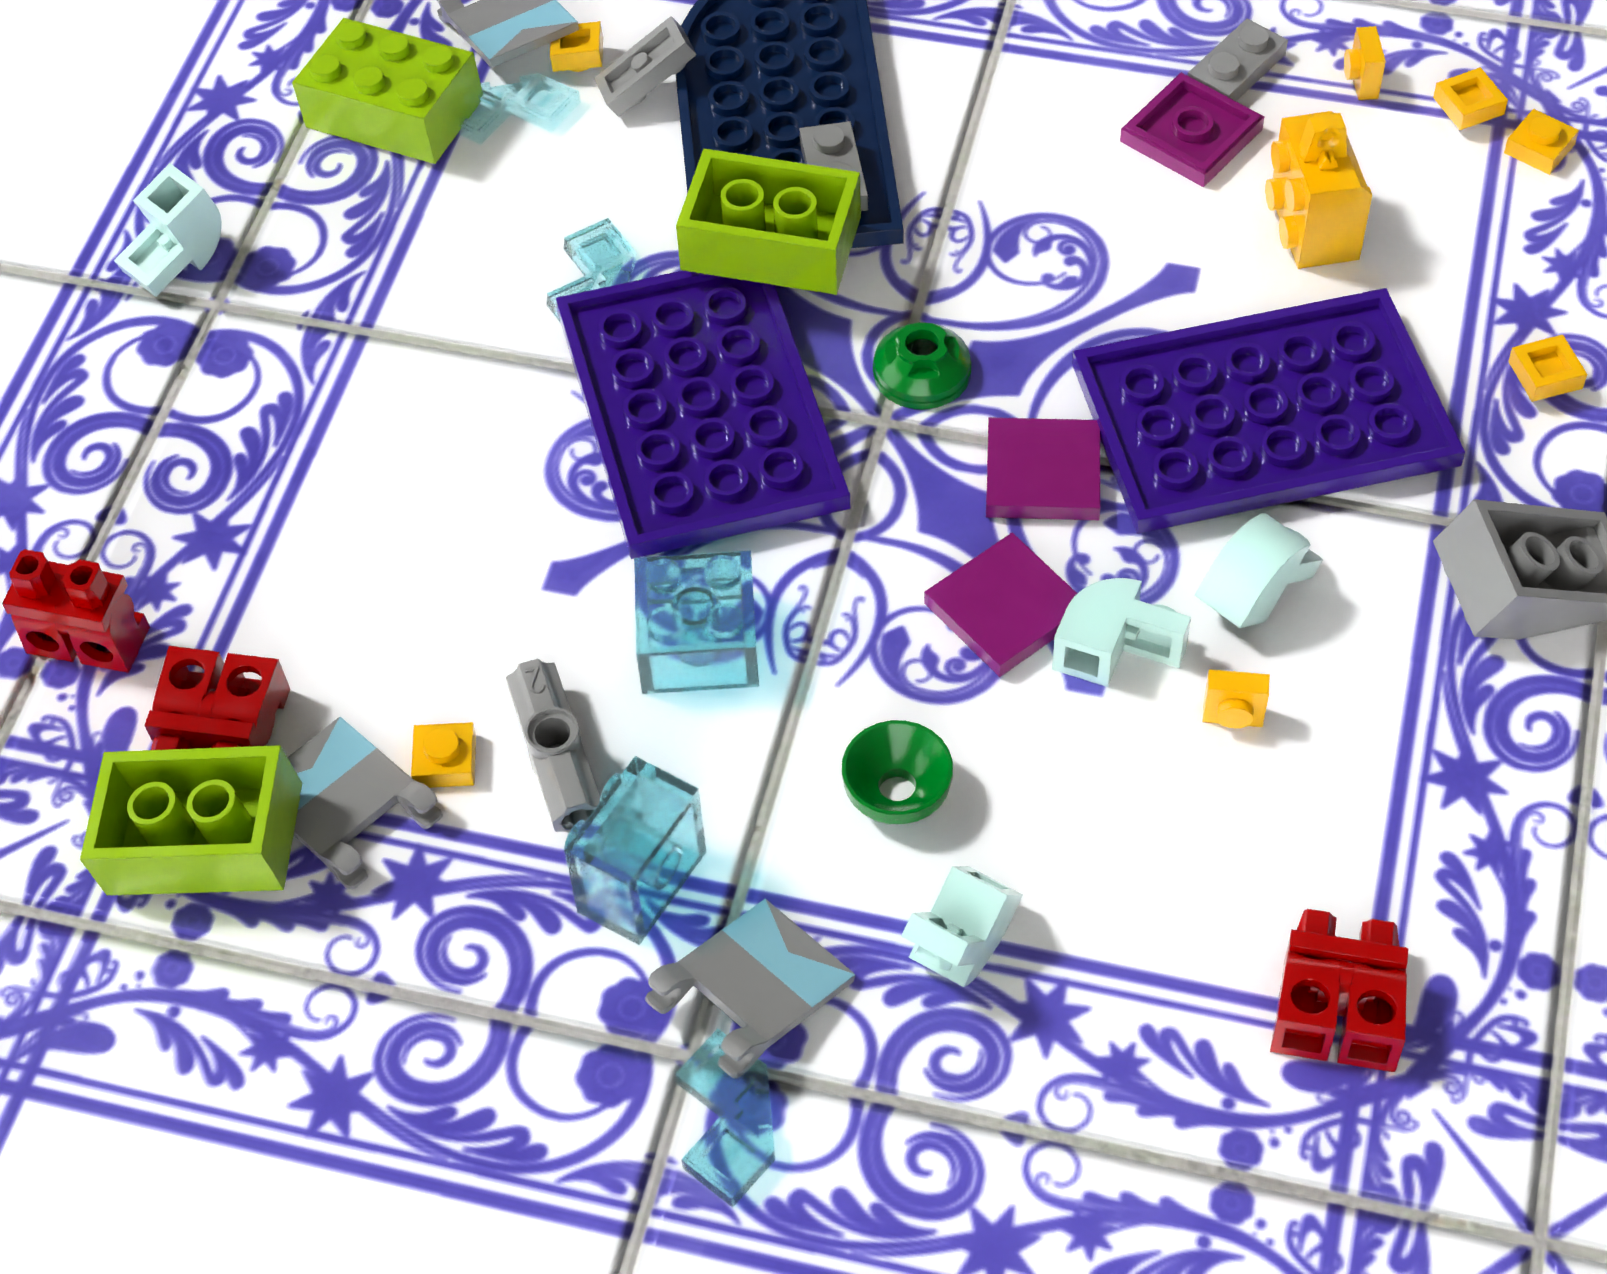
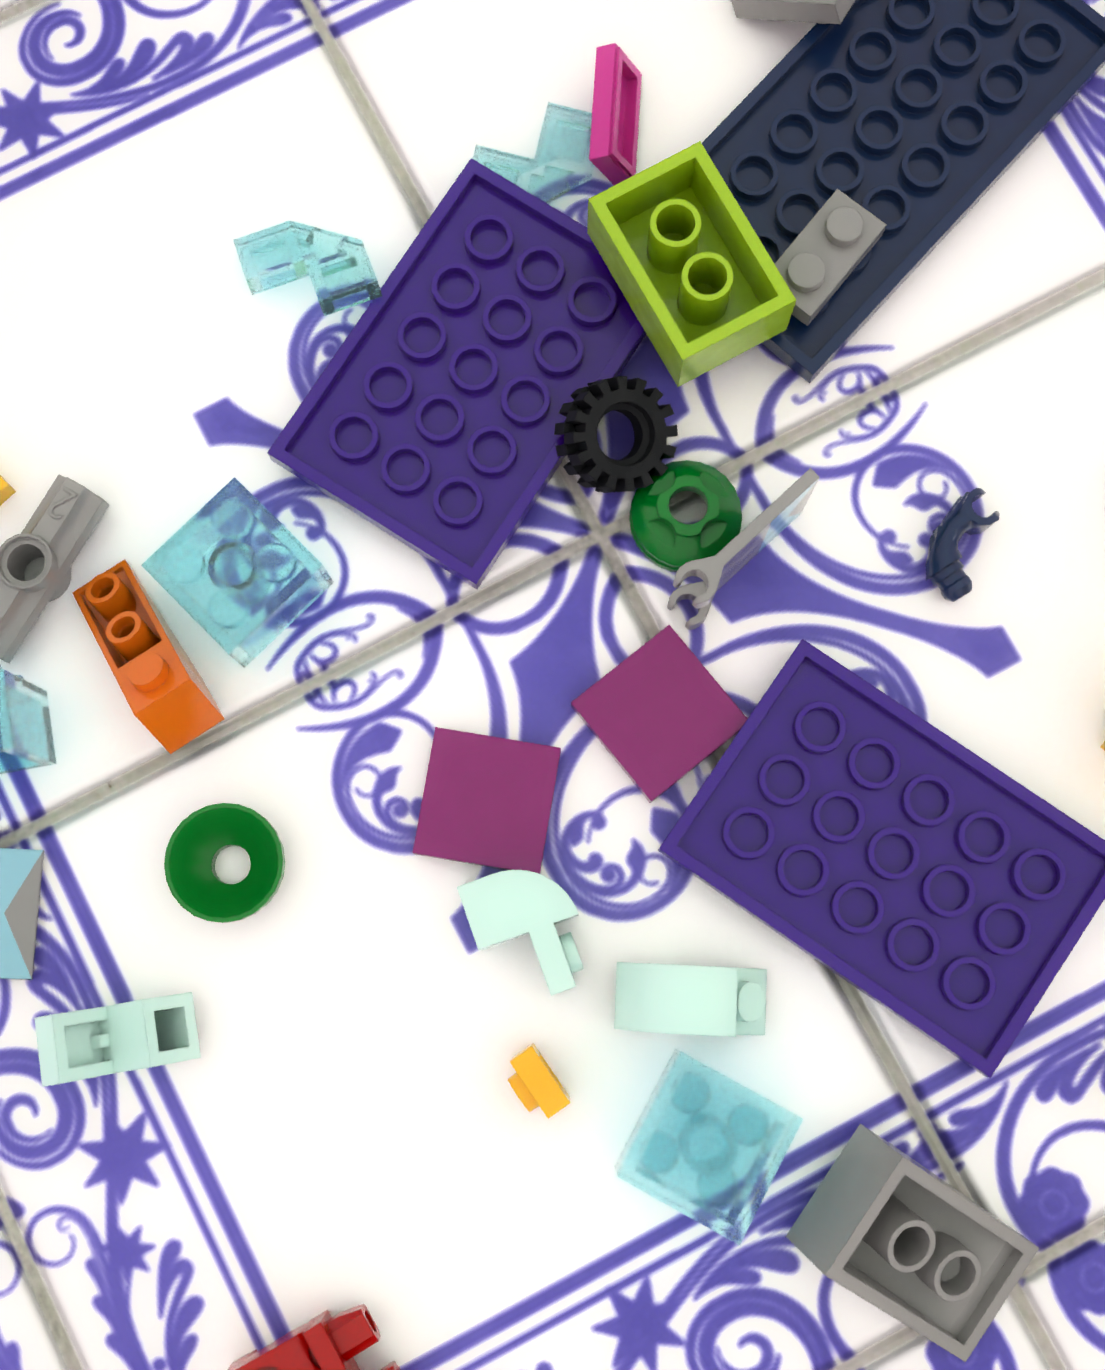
camera: 50 degrees right, 25 degrees up
(542, 420) = (296, 250): none -> clear light blue tile
(615, 209) = (615, 114): none -> dark pink tile
(699, 721) = (147, 658): none -> orange slope
(832, 348) = (649, 434): none -> black tyre
(984, 338) = (738, 552): none -> light grey flag
(1091, 251) = (943, 556): none -> dark blue piece
(1369, 624) = (707, 1145): none -> clear light blue brick

